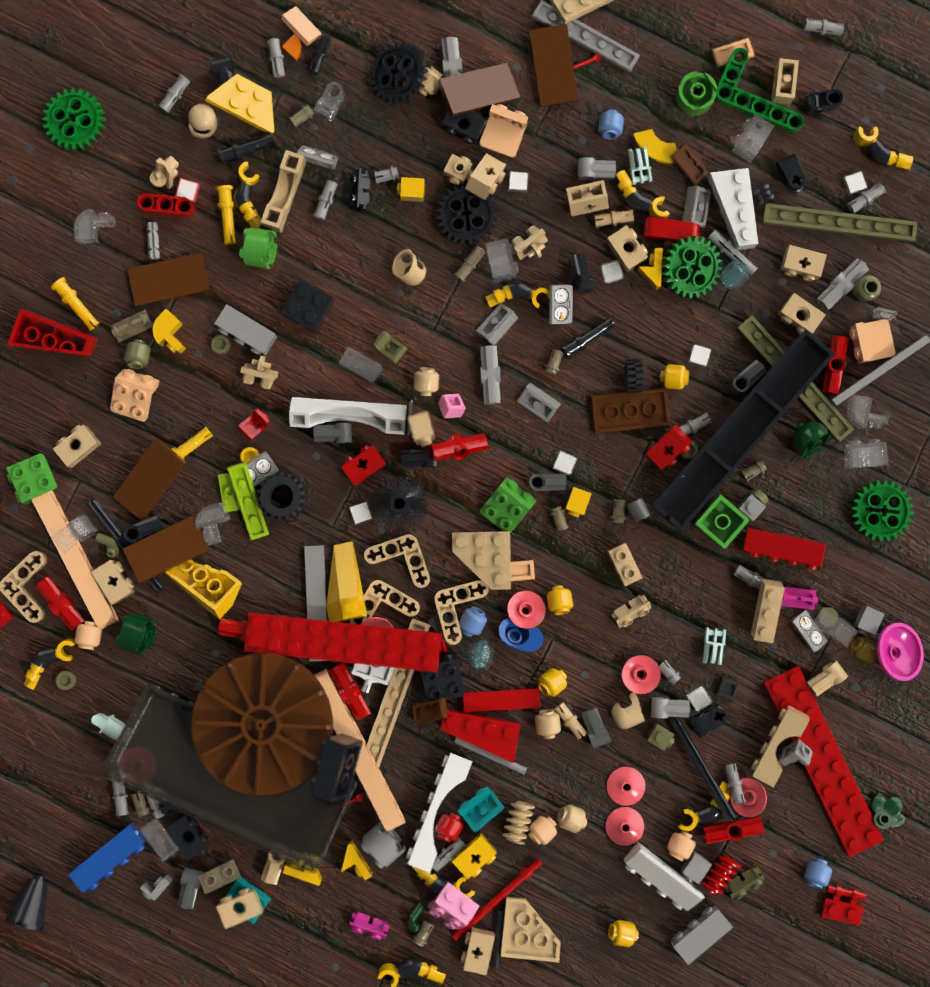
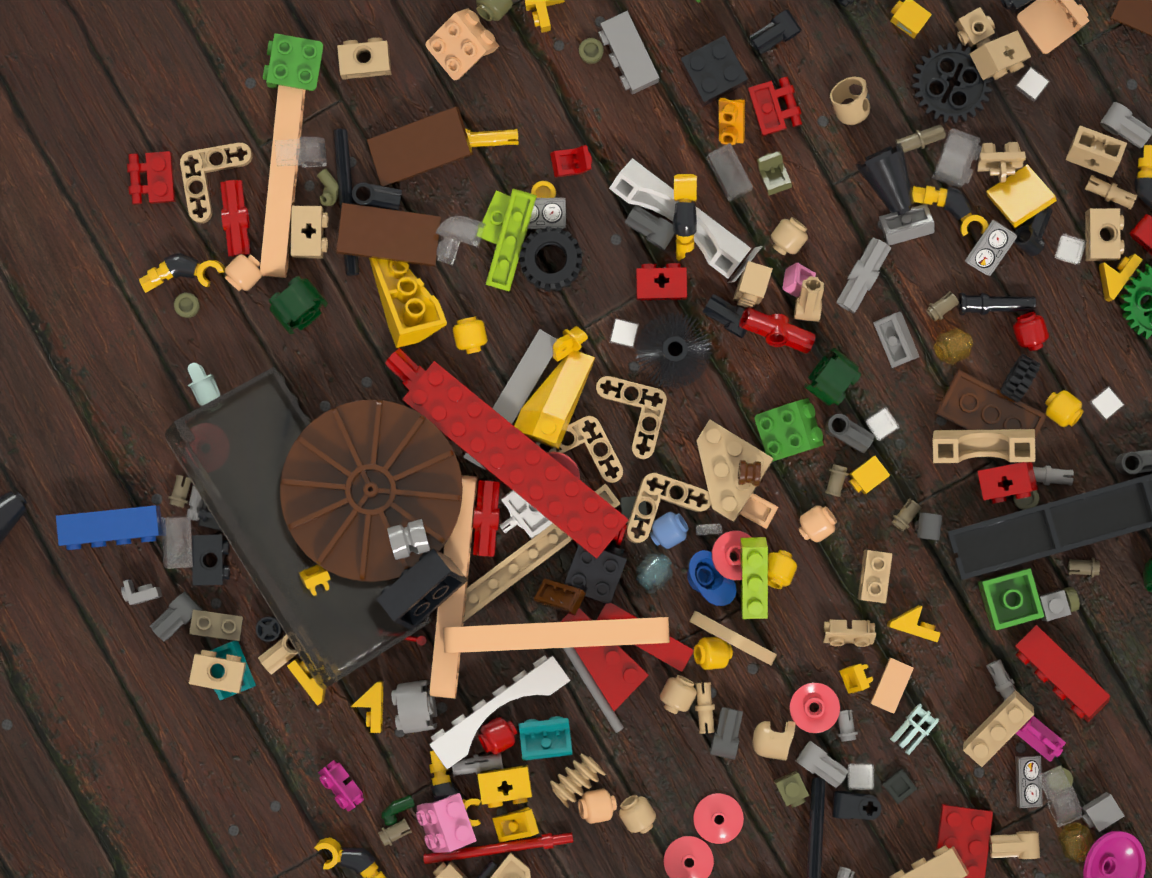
camera: 35 degrees right, 0 degrees up
(120, 799) = (163, 470): light grey axle -> none
(255, 859) = (266, 632): none -> black wheel
(259, 369) = (605, 101): tan hips -> none
(261, 579) = (470, 334): none -> yellow head
(261, 805) = (315, 576): none -> yellow tile
(306, 742) = (408, 539): none -> light grey wheel
(329, 542) = (569, 342): none -> yellow piece
(333, 251) = (782, 28): none -> black piece
(340, 331) = (731, 121): none -> light orange hips
(348, 410) = (685, 213): none -> piece
(358, 307) = (767, 107): none -> red plate
(443, 739) = (556, 635): none -> light nougat beam
(466, 302) = (889, 178): none -> black cone
(466, 414) = (809, 303): none -> tan piece
(497, 604) = (708, 529): none -> clear tile
(498, 877) = (515, 825): none -> yellow slope
(500, 551) = (749, 473): none -> reddish brown wheel
(513, 454) = (833, 377): none -> dark green brick
(547, 617) = (754, 578): none -> lime arch
(558, 258) = (1021, 196): none -> yellow tile
(559, 665) = (733, 638): none -> tan beam
(565, 554) = (817, 523): none -> light nougat head
(577, 383) = (953, 346): none -> clear yellow head
(621, 341) = (1030, 331): none -> red head
(623, 444) = (1008, 444): none -> tan arch
(654, 638) = (855, 678): none -> yellow tile
(665, 581) = (908, 622): none -> yellow slope
(681, 627) = (891, 685): none -> light nougat tile

